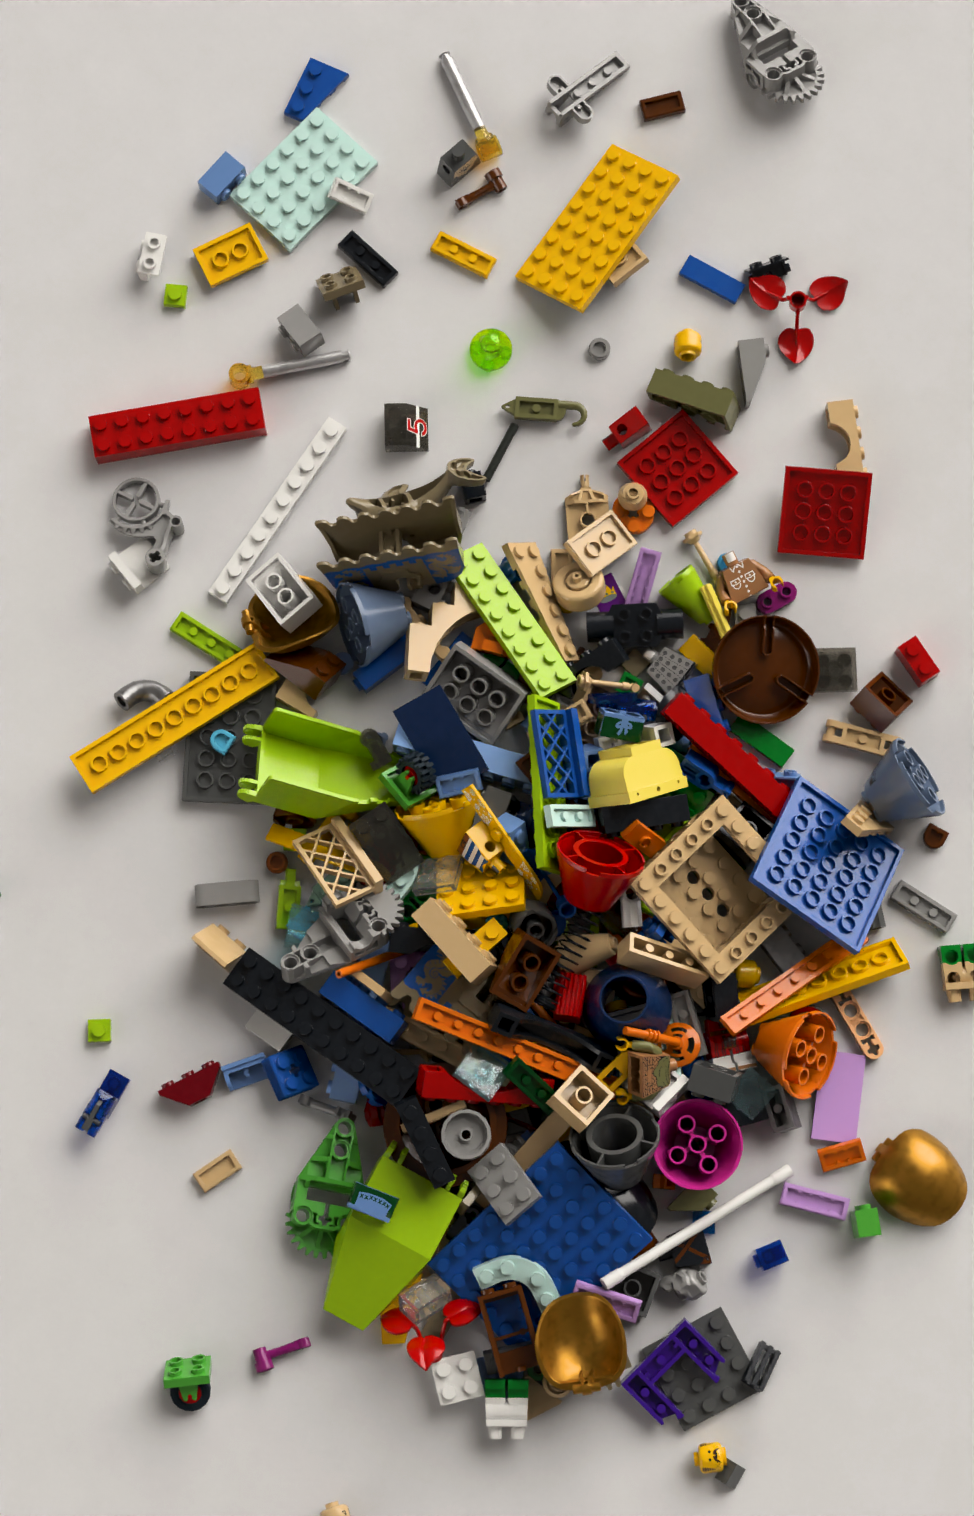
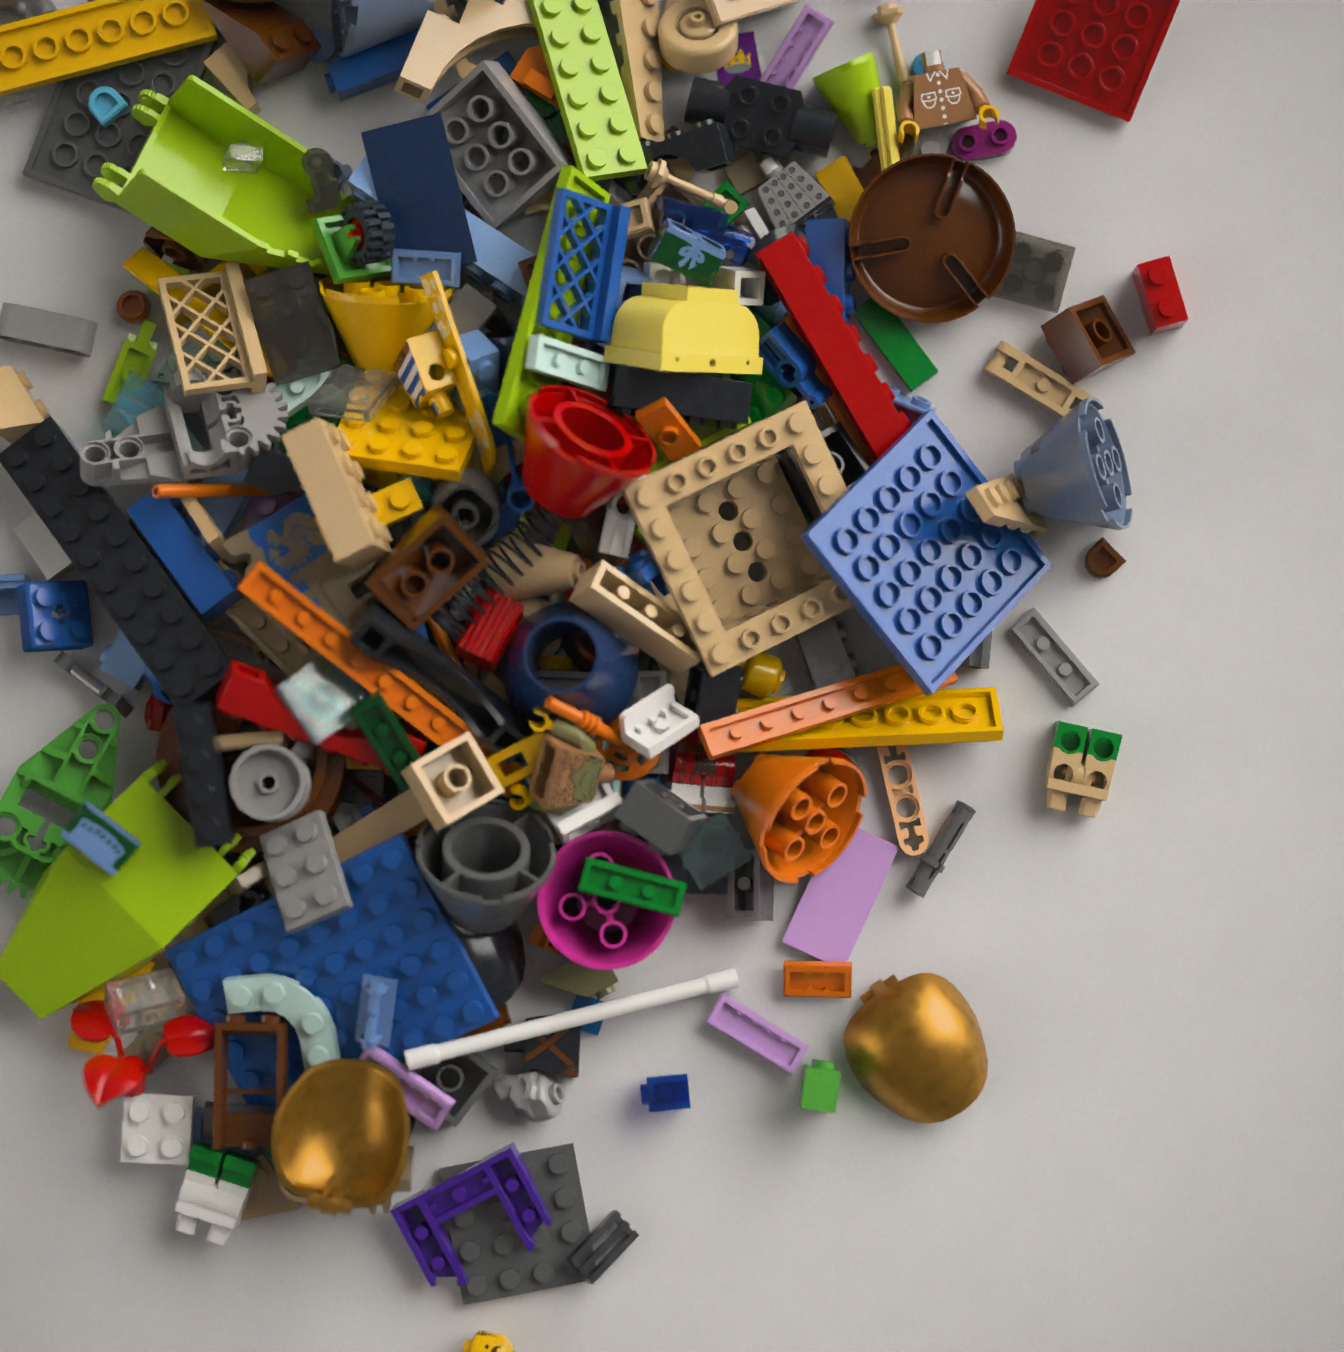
camera: 15 degrees right, 5 degrees up
(319, 748) = (242, 157): none -> clear plate
(575, 1259) = (375, 1011): none -> medium blue hinge
(693, 1023) = (656, 722): none -> white bracket
(711, 1130) = (632, 886): none -> green tile
(892, 1047) = (937, 854): none -> dark grey pin

